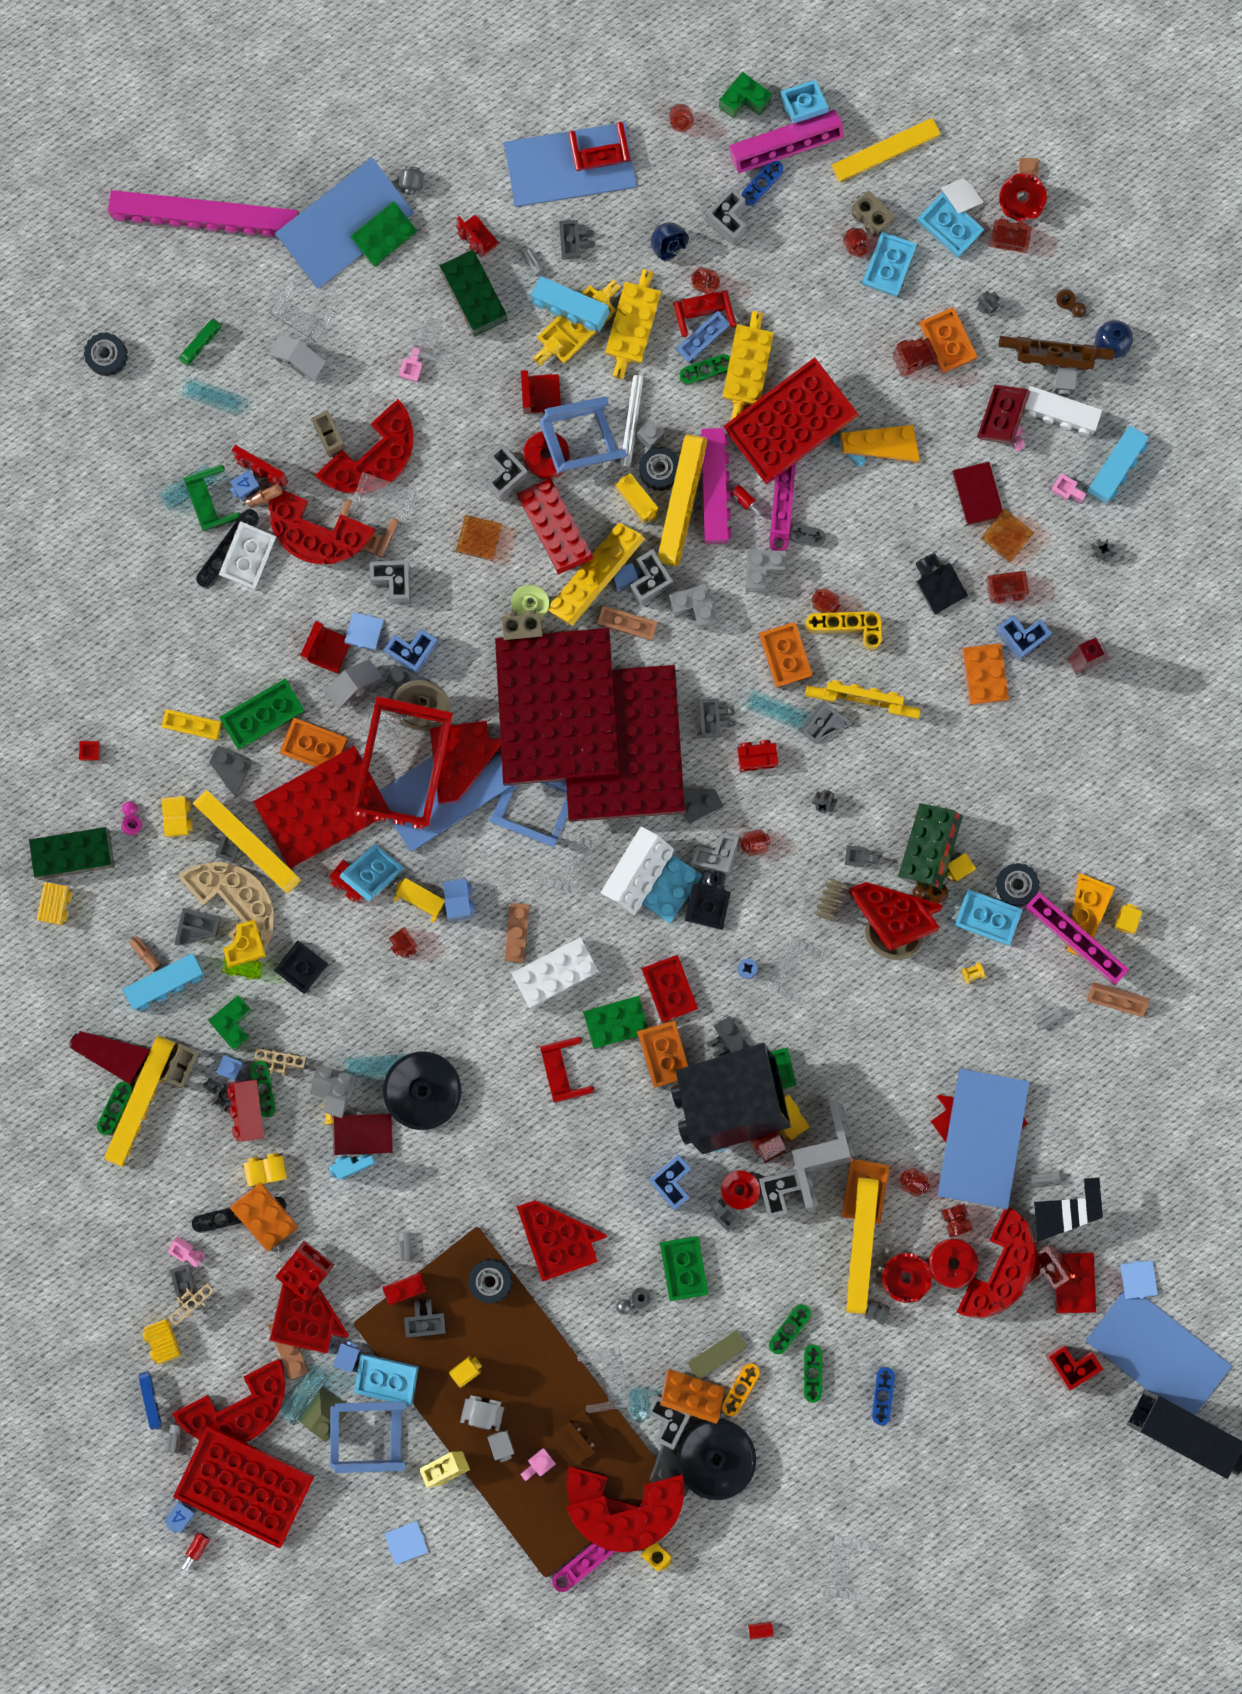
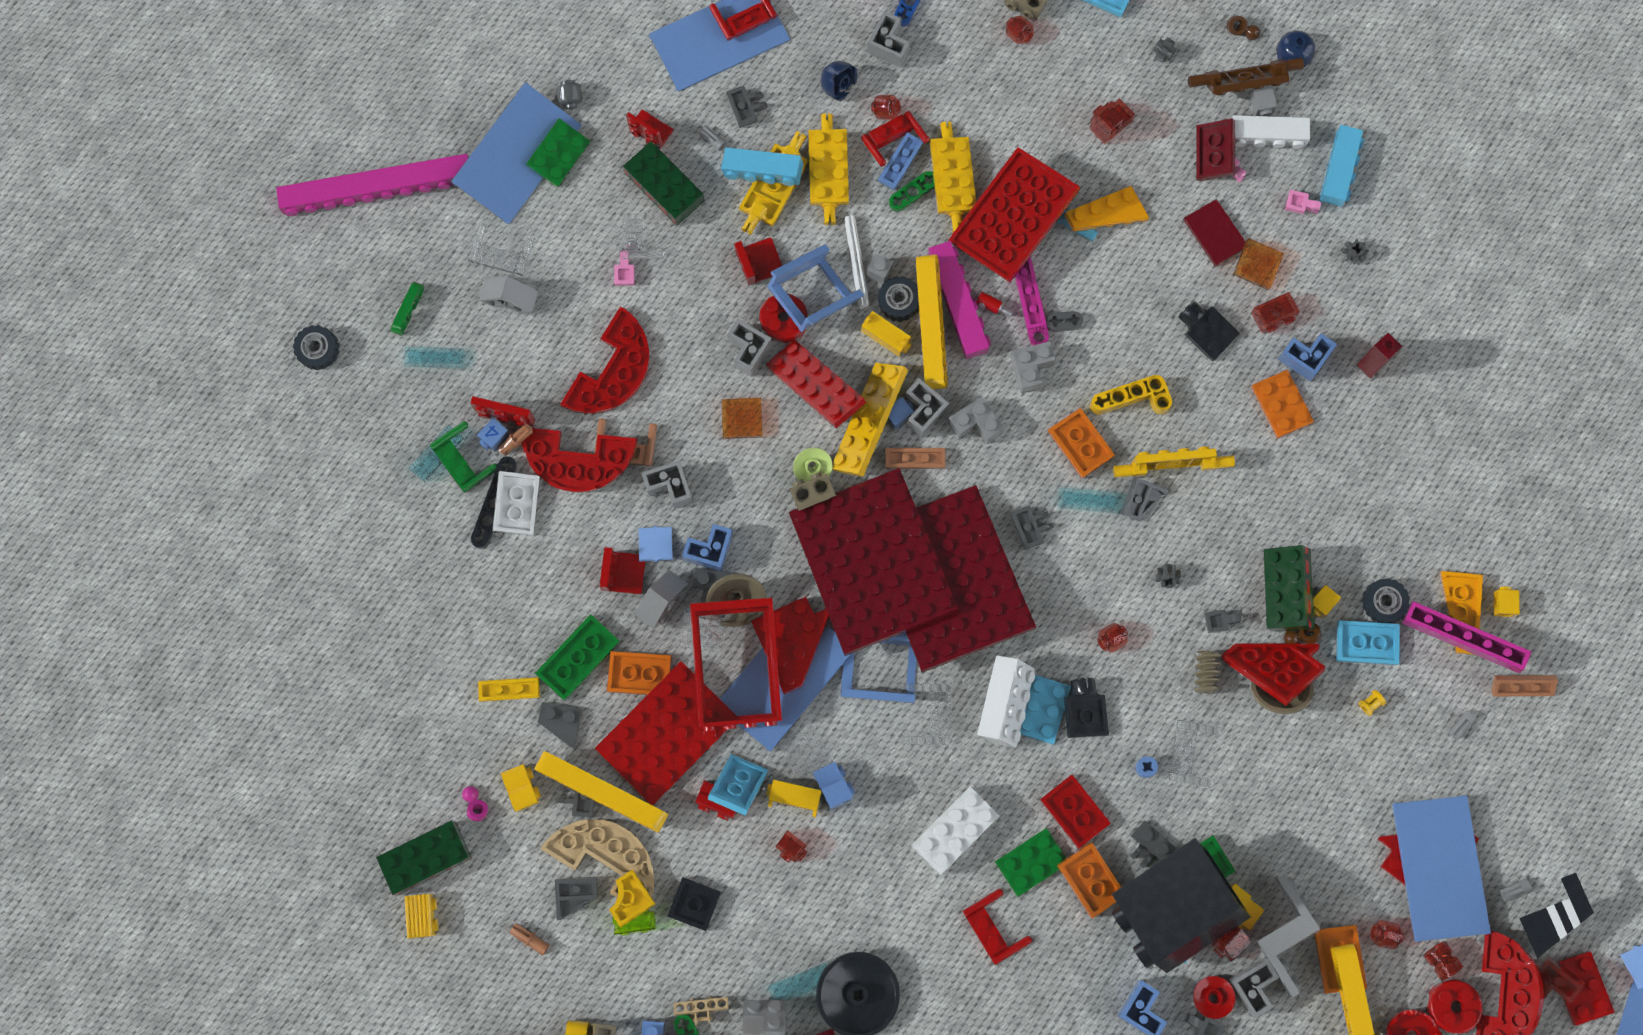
camera: 15 degrees left, 5 degrees down
(89, 750) = (412, 747): red plate -> none
(163, 982) = (557, 963): medium azure brick -> none
(227, 1022) = (635, 984): green brick -> none
(328, 433) = (561, 359): dark tan brick -> none
(386, 491) = (635, 399): clear plate -> none
(517, 932) = (902, 801): nougat plate -> none
(700, 803) = (1046, 614): dark grey wing -> none
(720, 858) = (1081, 666): light grey plate -> none
(757, 756) = (1087, 551): red brick -> none
(825, 601) = (1103, 379): clear red head -> none
(889, 264) = (1057, 41): medium azure plate -> none
(948, 340) = (1138, 95): orange plate -> none

